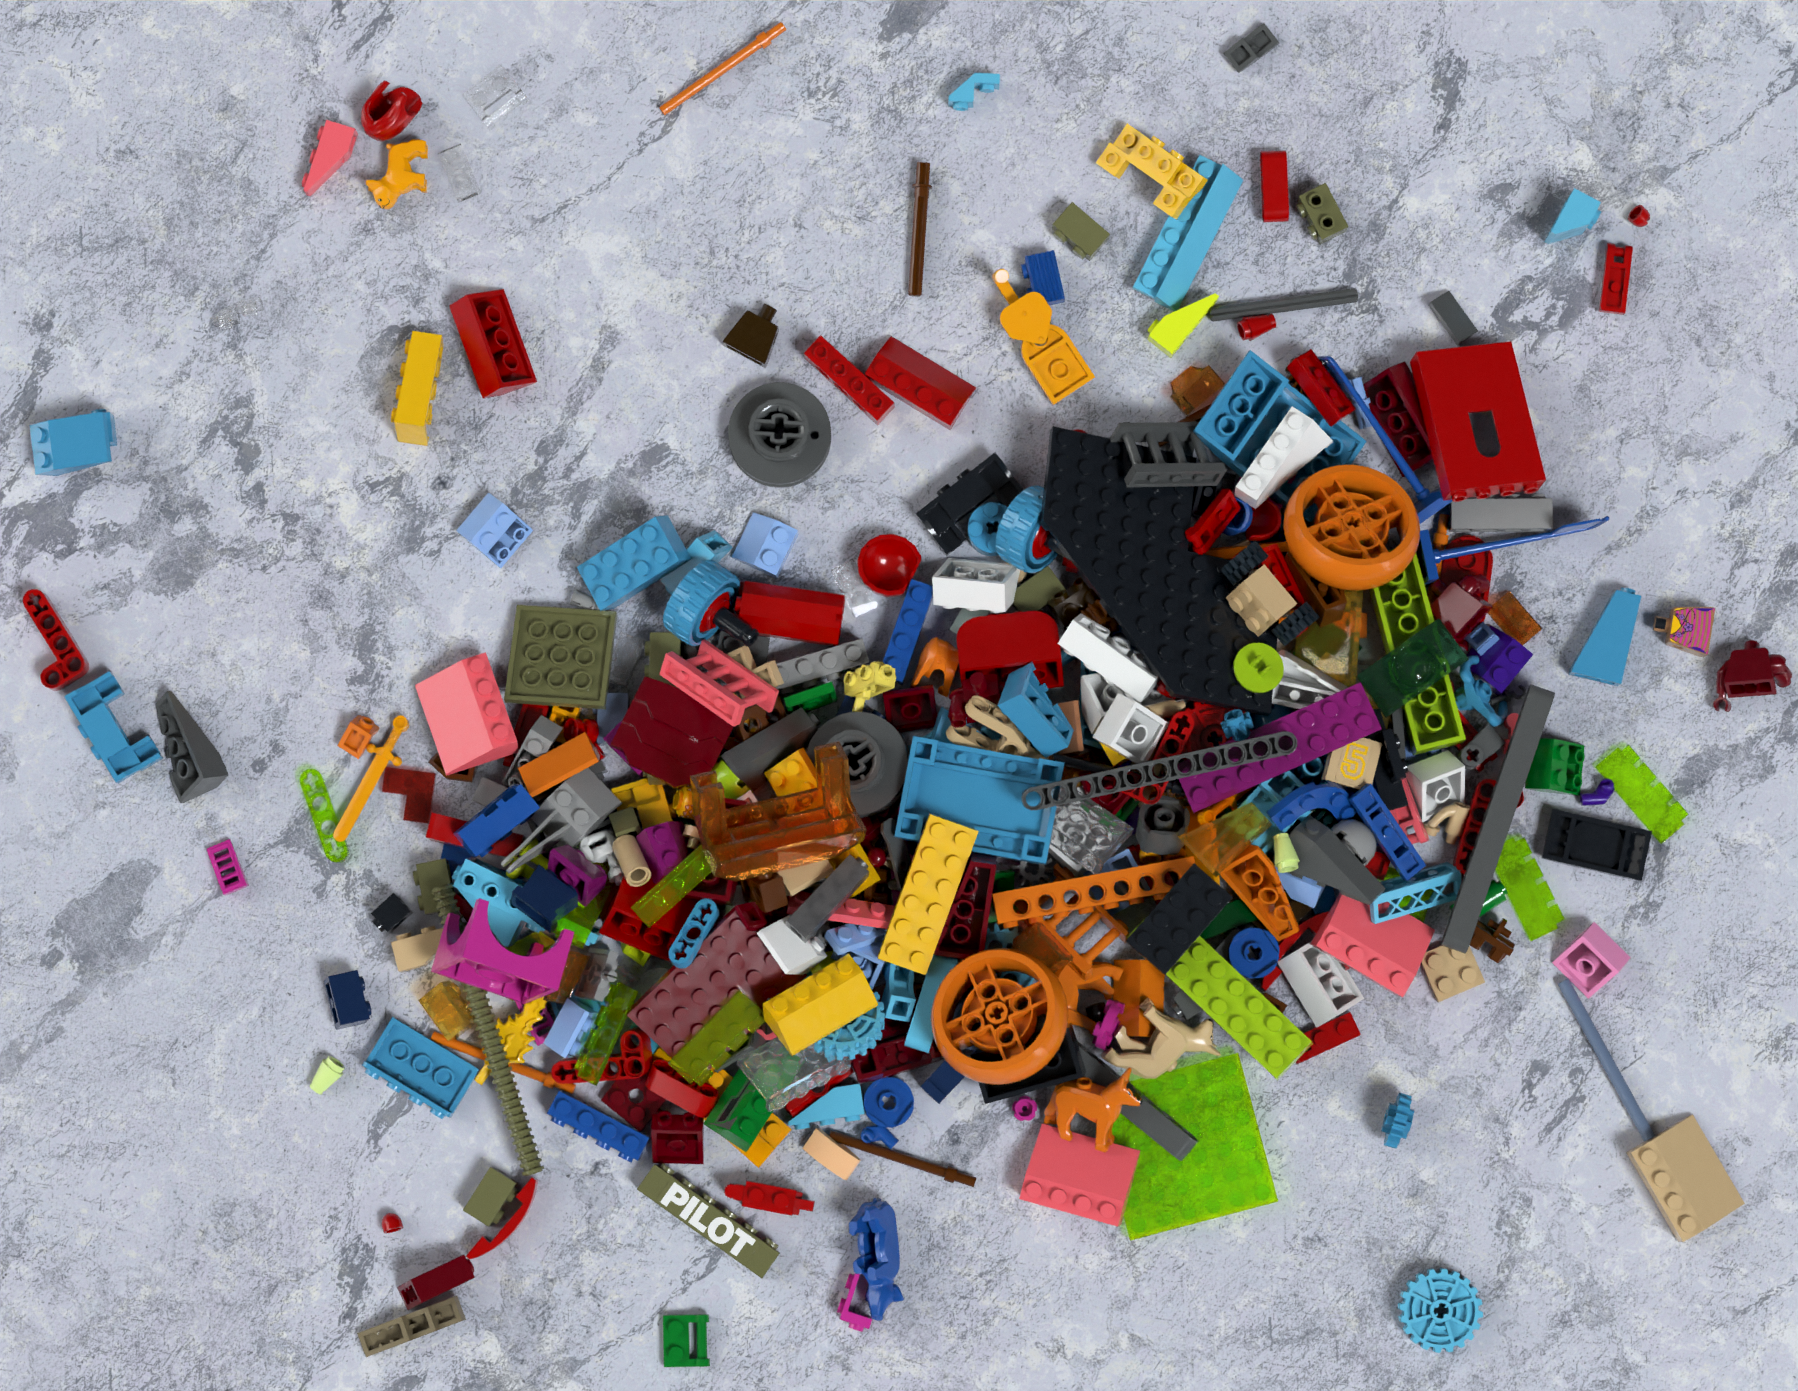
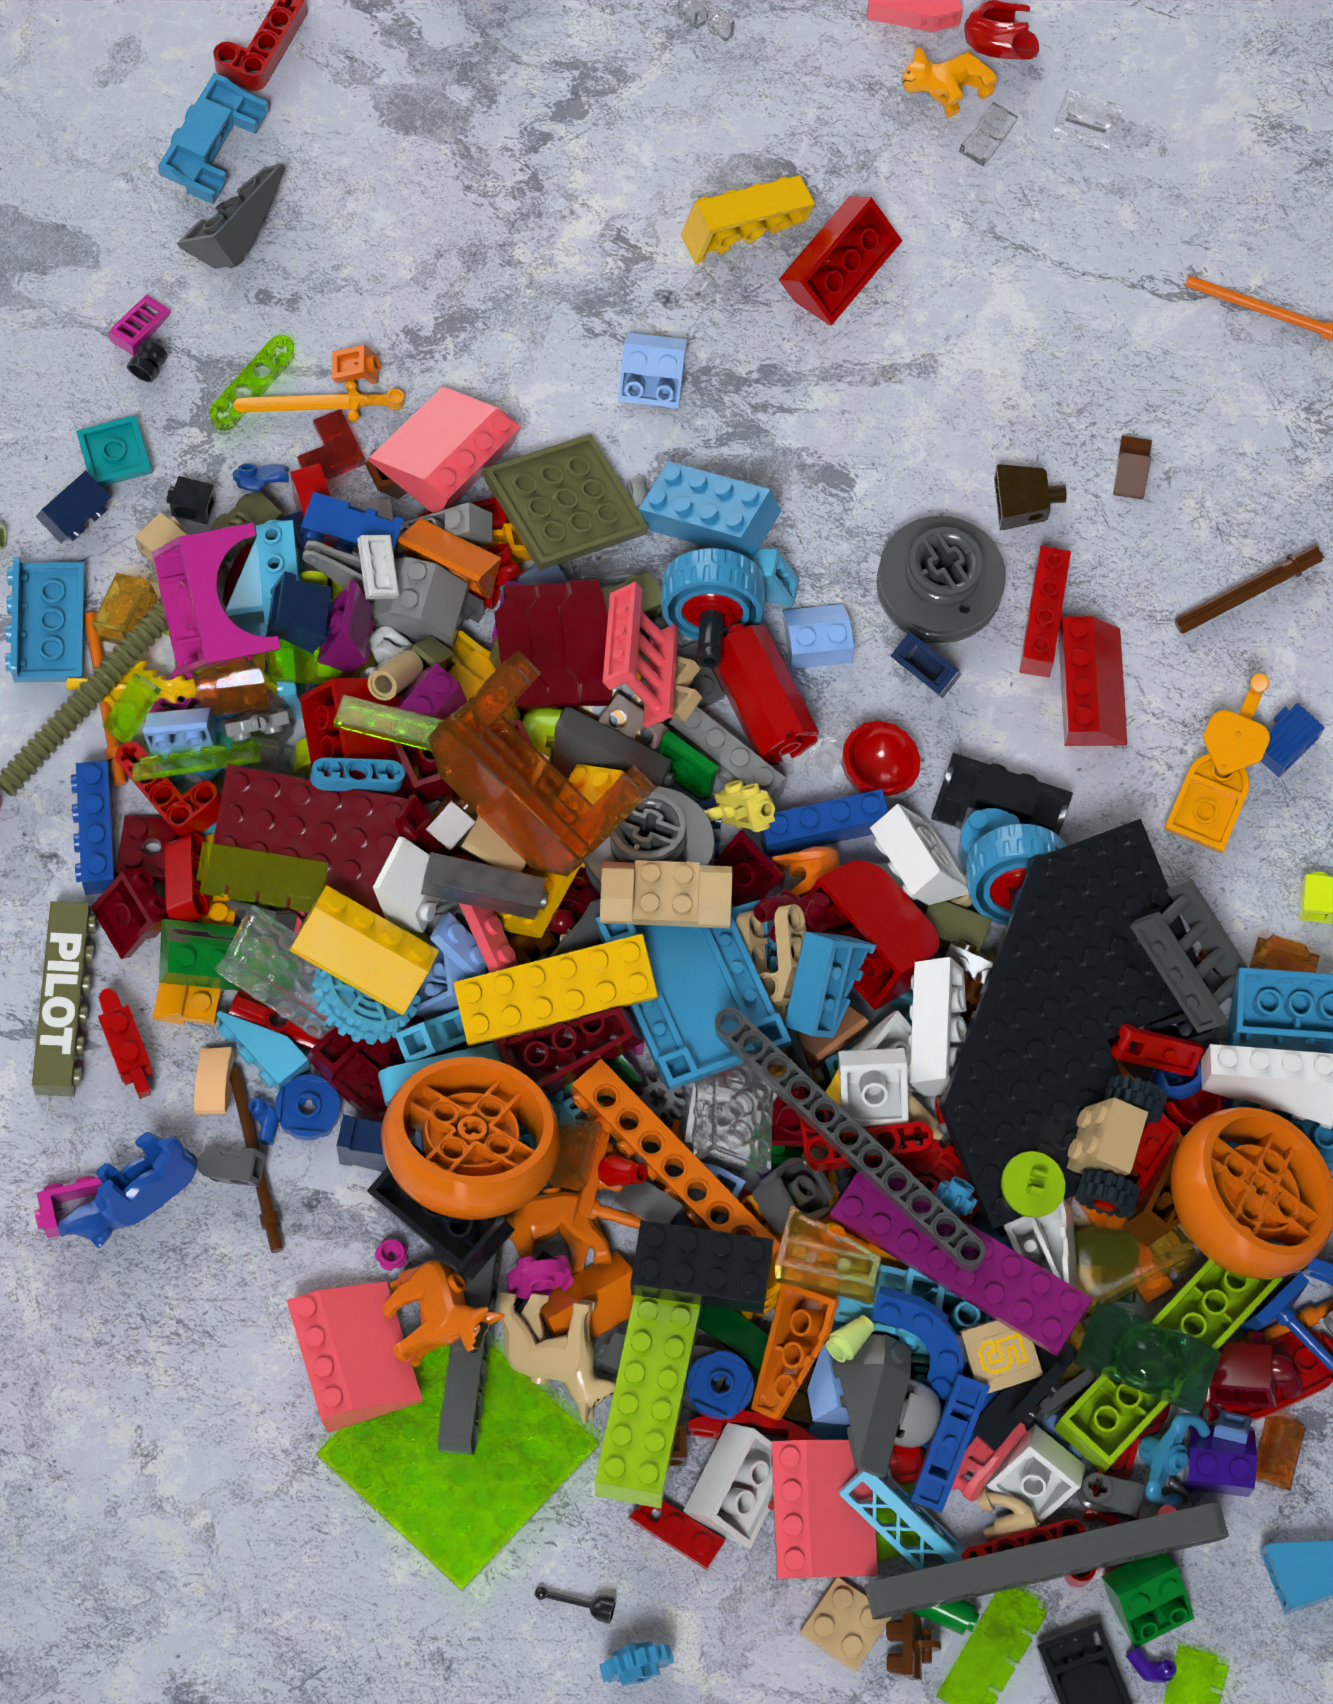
camera: 50 degrees right, 15 degrees down
(262, 880) = (147, 361): none -> black wheel
(318, 945) = (114, 451): none -> teal plate
(404, 853) = (254, 478): none -> blue plate
(530, 1050) = (131, 708): none -> clear neon green slope
(548, 825) = (378, 567): none -> white plate
(778, 246) = (1132, 467): none -> reddish brown slope
(839, 488) = (926, 664): none -> dark blue hips
(896, 1185) = (232, 1169): none -> dark grey leg
(908, 778) = (666, 894): none -> tan piece
(1074, 928) = (620, 1171): none -> red cone
(1108, 923) = (649, 1203): none -> dark grey slope
(1343, 1118) = (601, 1607): none -> black hinge

